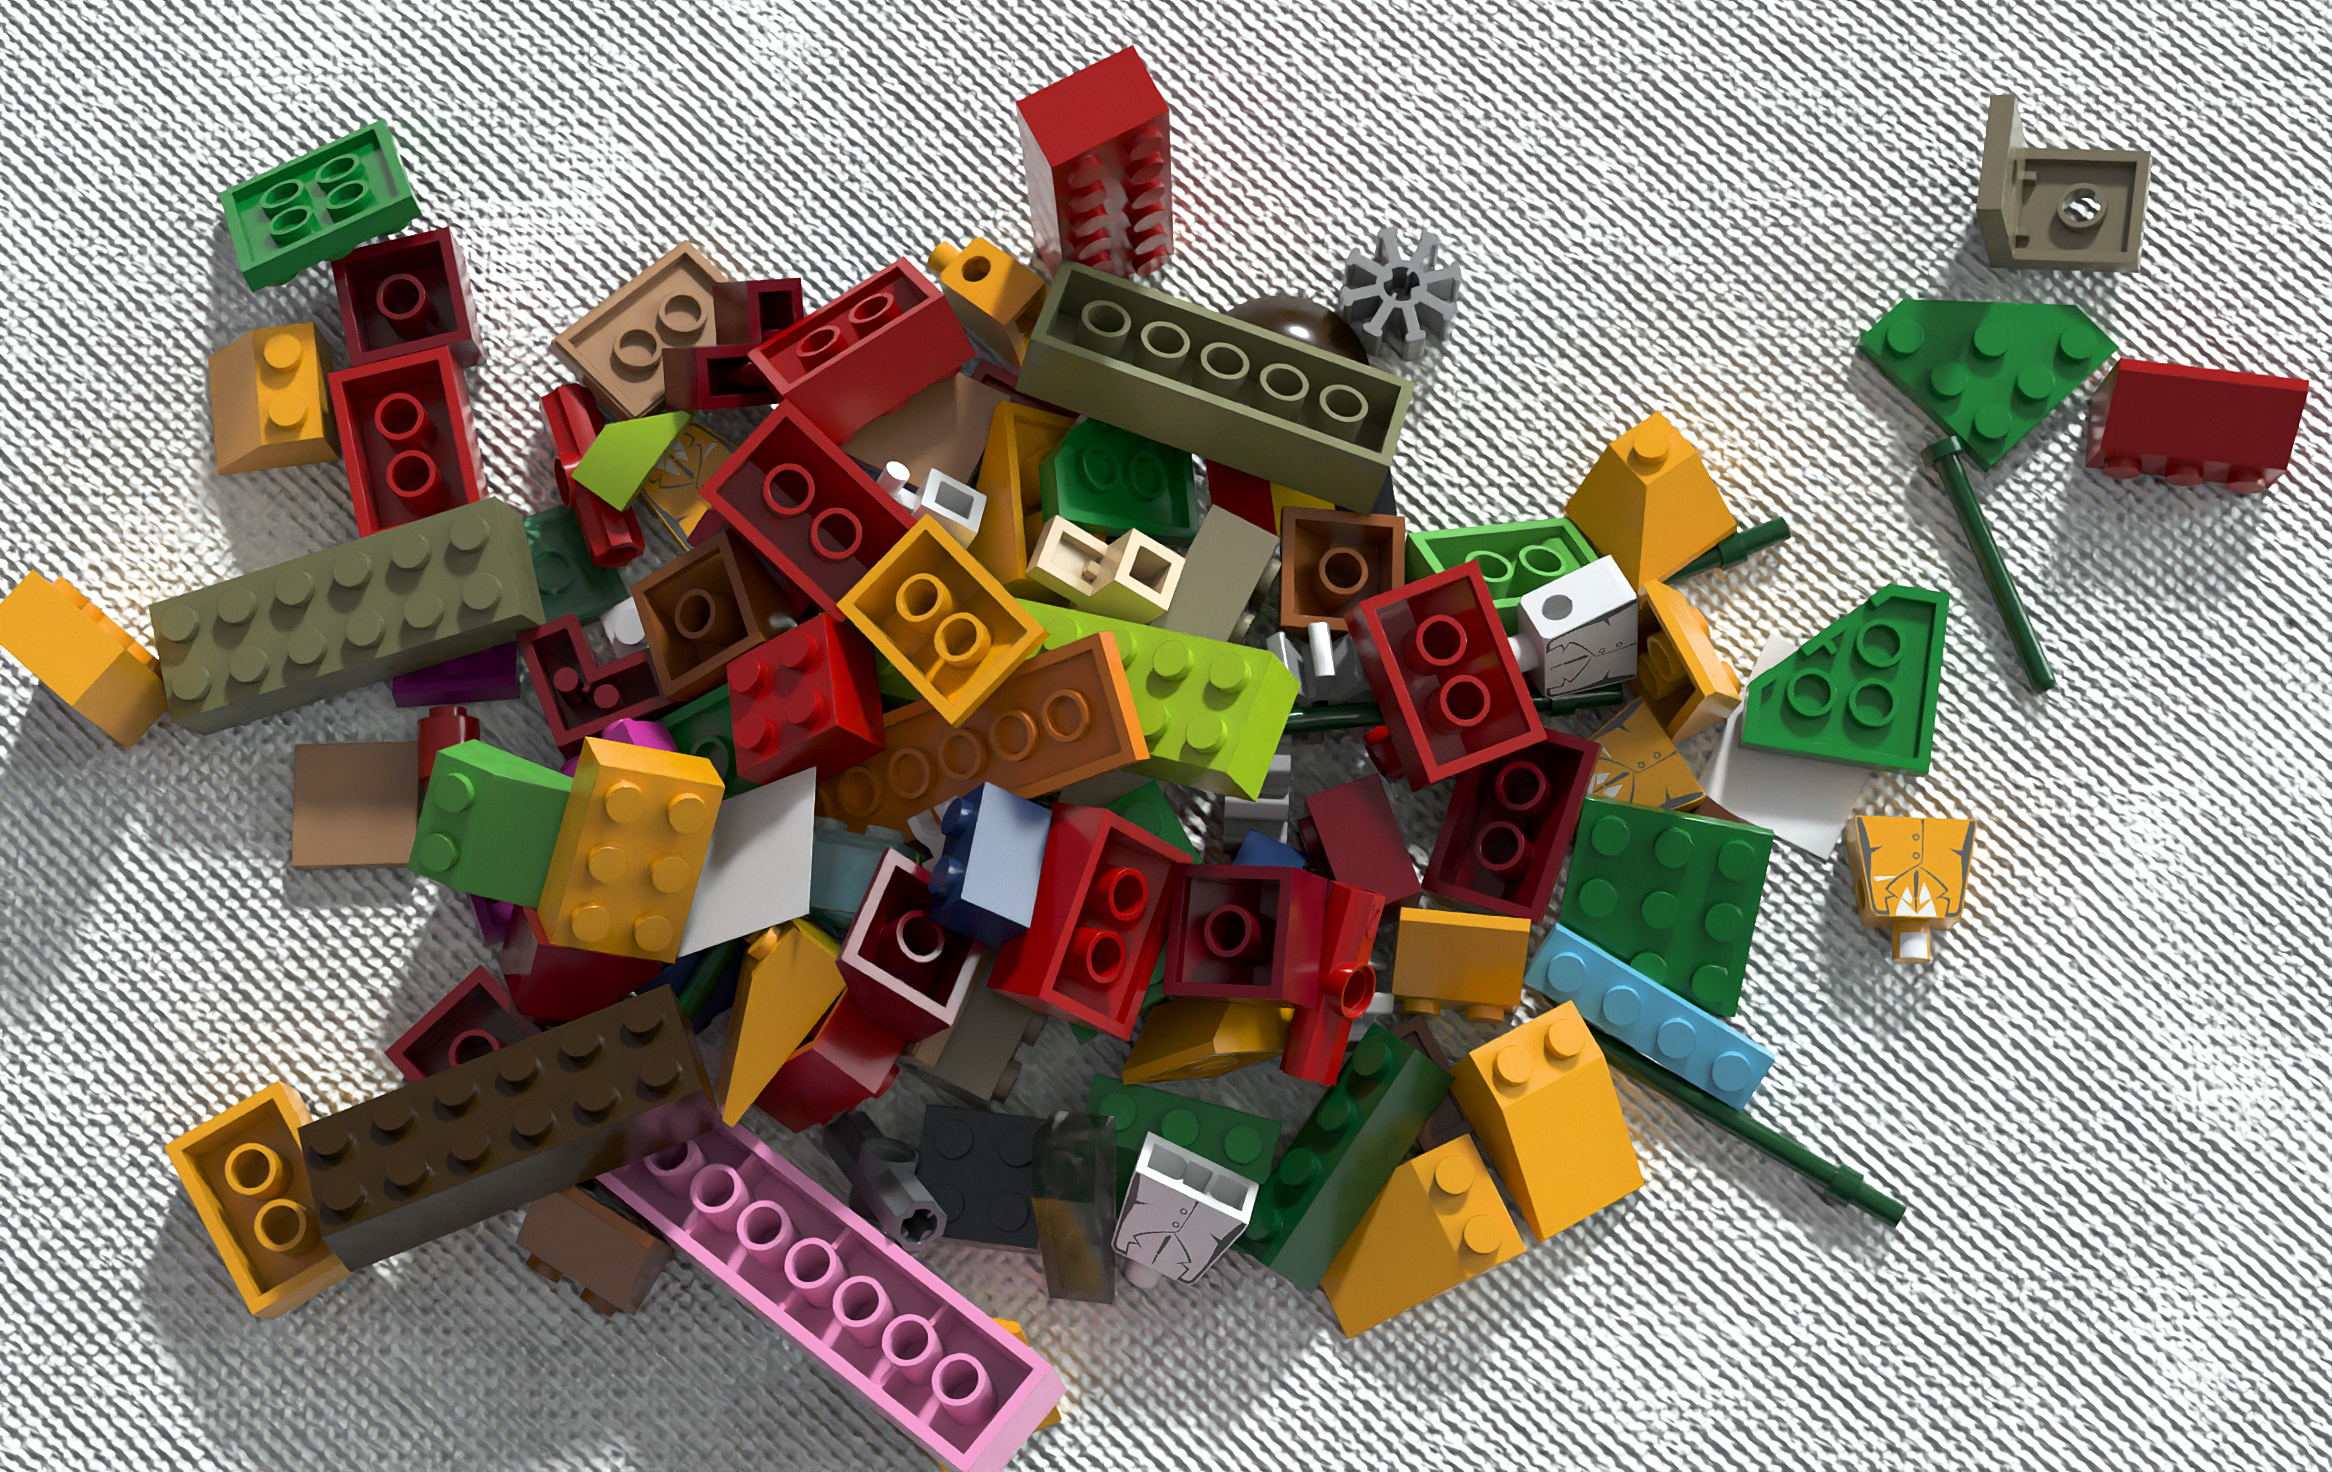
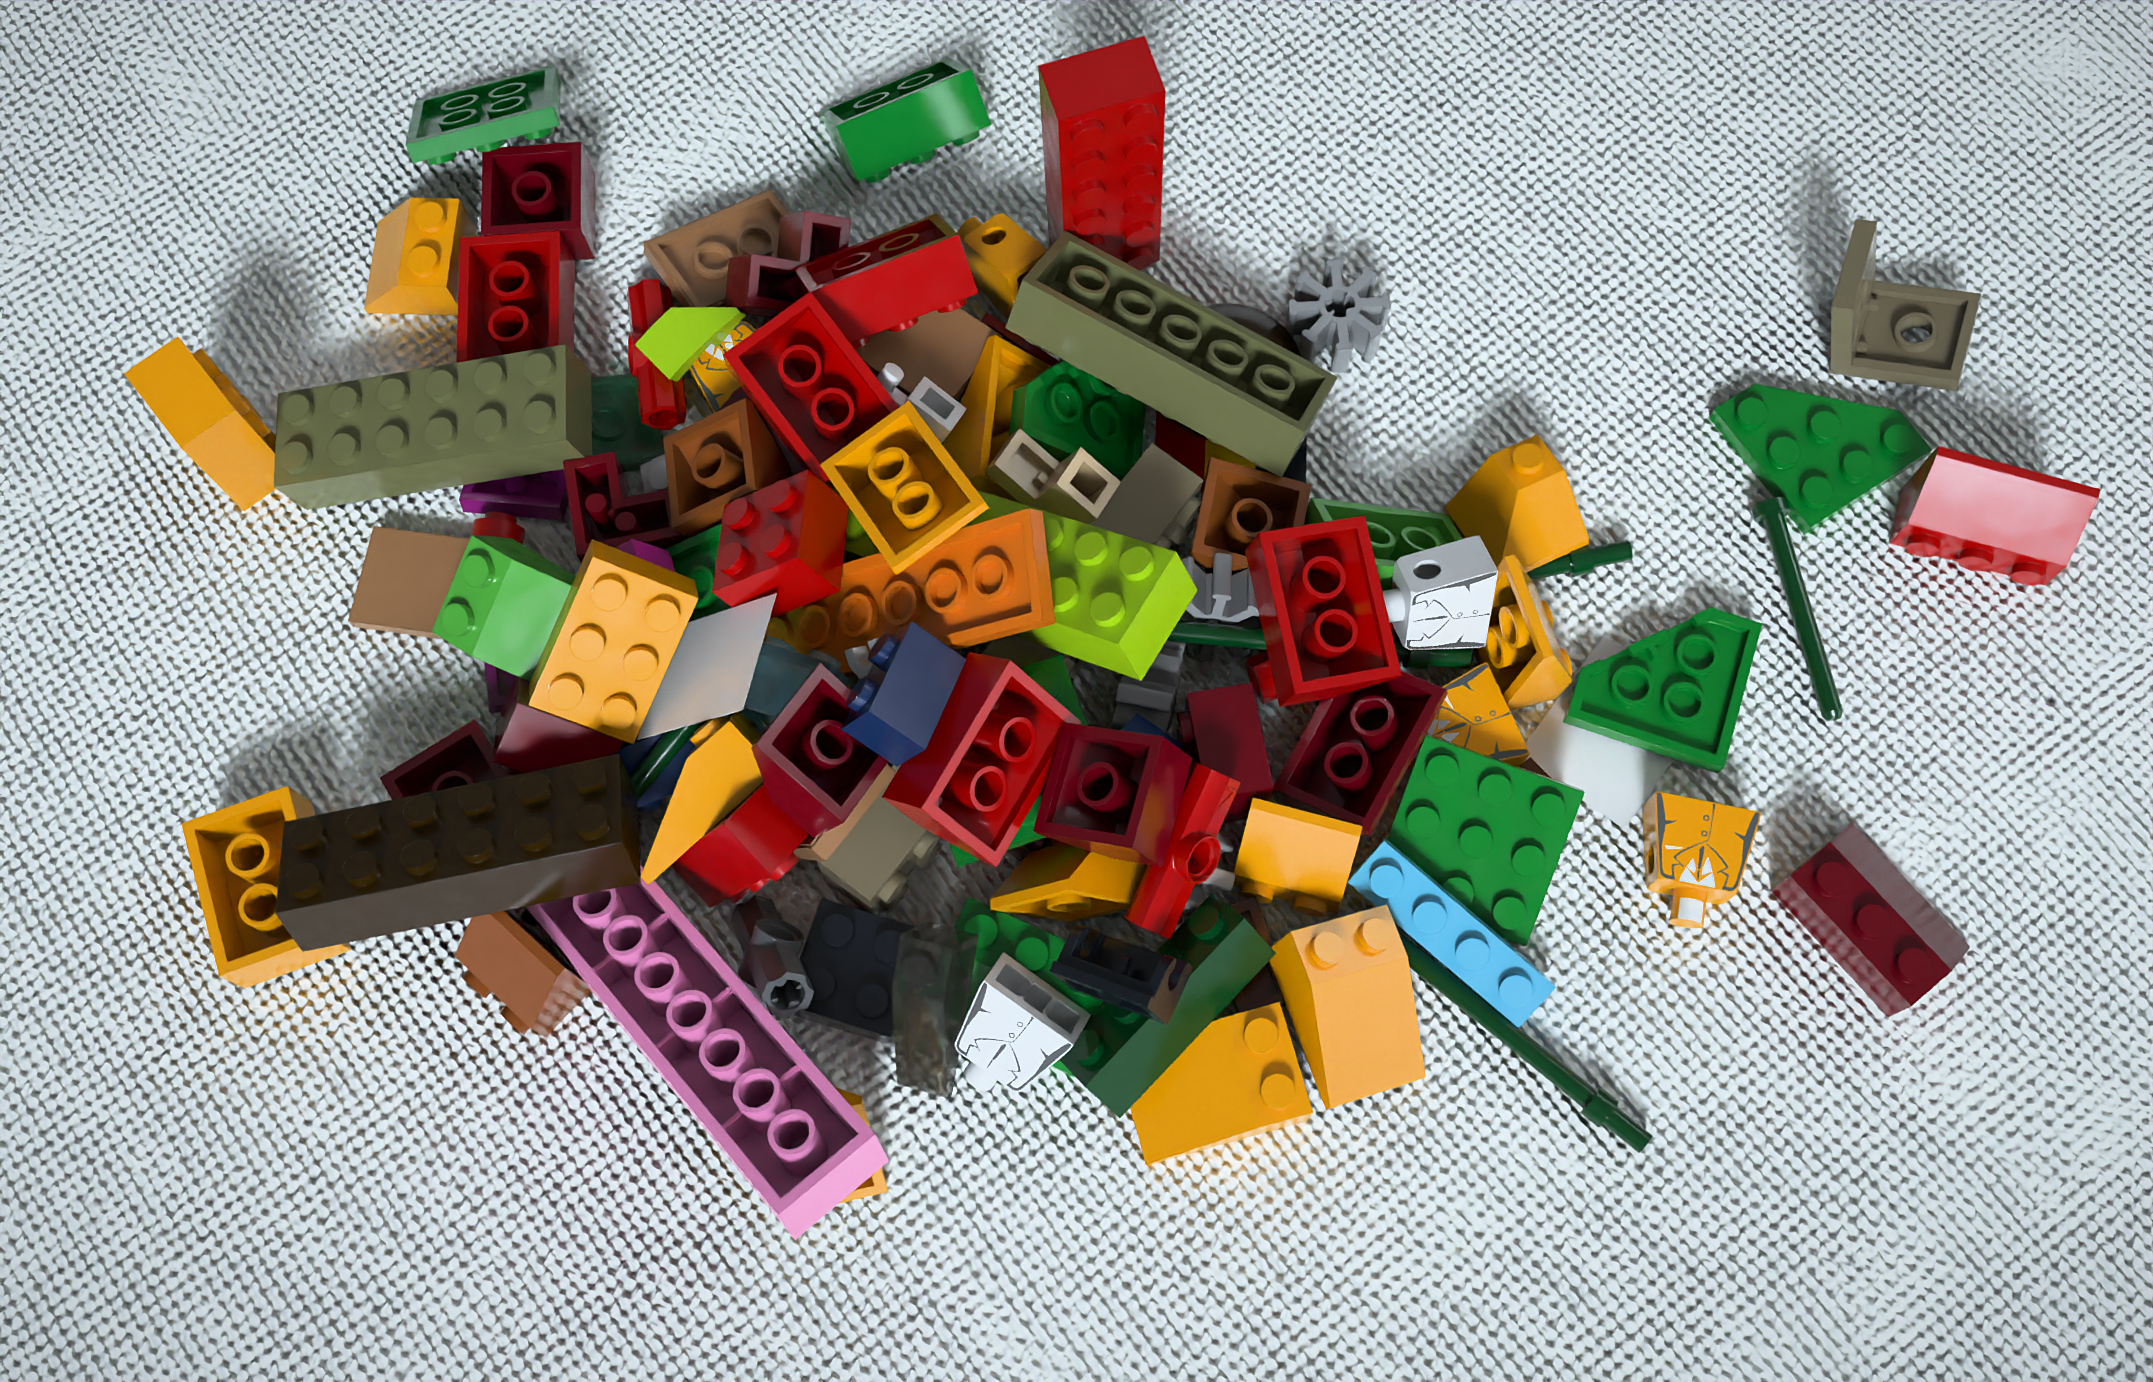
camera: 10 degrees right, 5 degrees down
(833, 123) = (906, 119): none -> green slope
(1288, 1134) = (1121, 974): none -> black hinge
(2118, 919) = (1872, 921): none -> dark red slope

